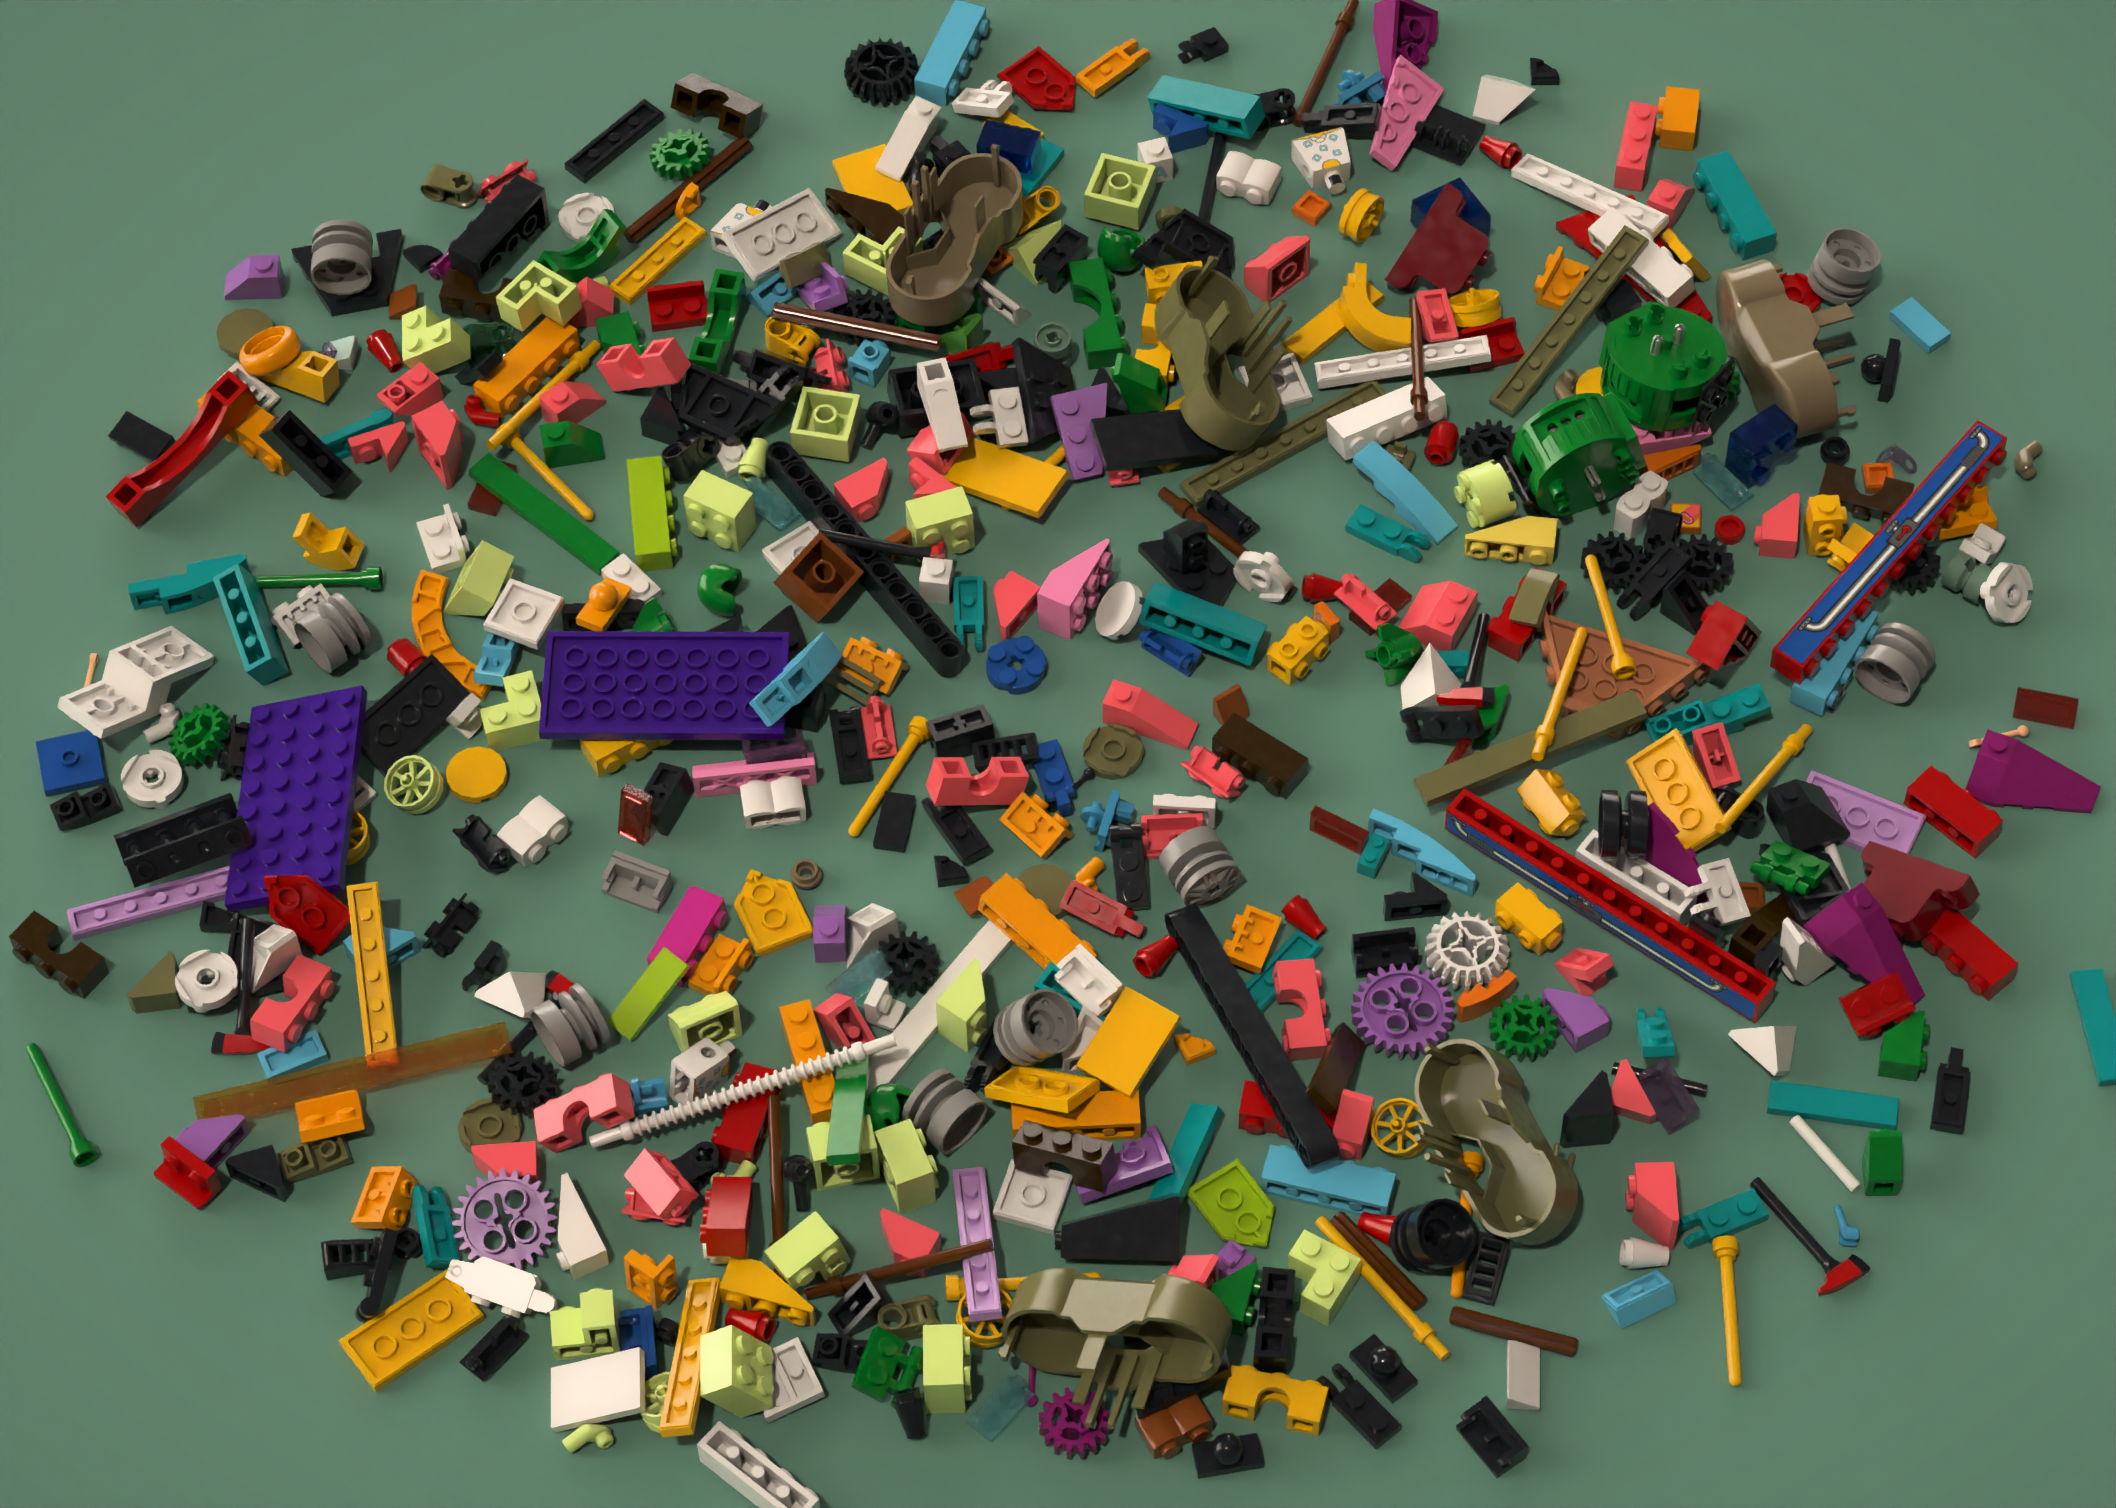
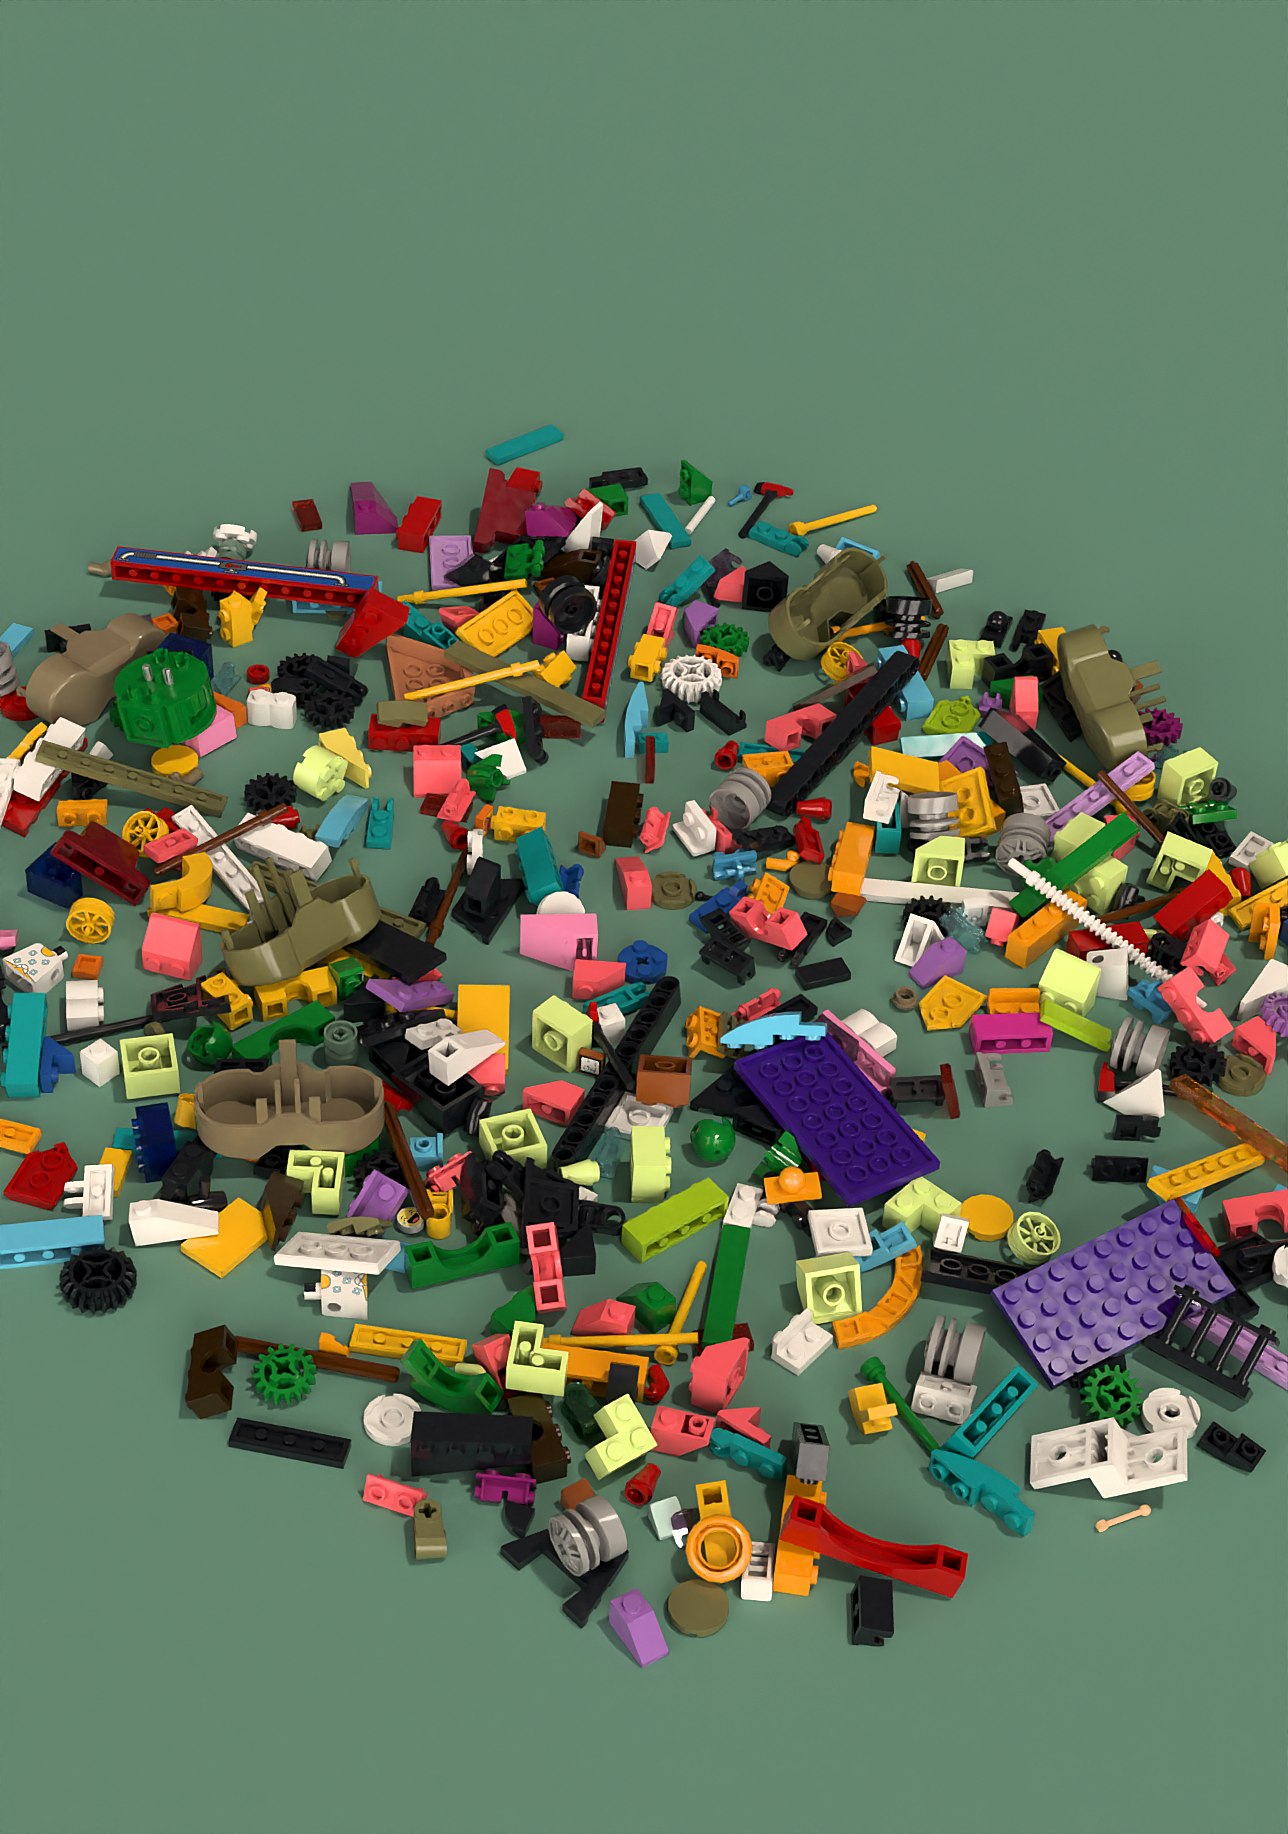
camera: 125 degrees left, 15 degrees down
(70, 762) = (1208, 1484): blue plate -> none
(273, 954) = (1244, 1230): white slope -> none
(404, 656) = (928, 1303): red brick -> none
(533, 831) = (1006, 1155): white brick -> none
(677, 305) = (452, 1304): red bracket -> none
(916, 734) = (743, 988): yellow piece -> none
(926, 479) = (525, 1063): coral slope -> none
(1377, 1020) = (758, 691): medium lavender gear -> none
(1421, 1331) = (958, 622): yellow bar -> none
(1492, 1437) = (997, 575): black hinge -> none
(1575, 455) = (268, 720): green piece -> none
(1622, 663) = (419, 671): yellow piece -> none
(1654, 1201) = (797, 549): coral slope -> none
(1722, 891) = (580, 571): white hinge -> none
(1779, 529) = (243, 646): coral slope -> none
(2022, 731) = (356, 534): light nougat hinge -> none

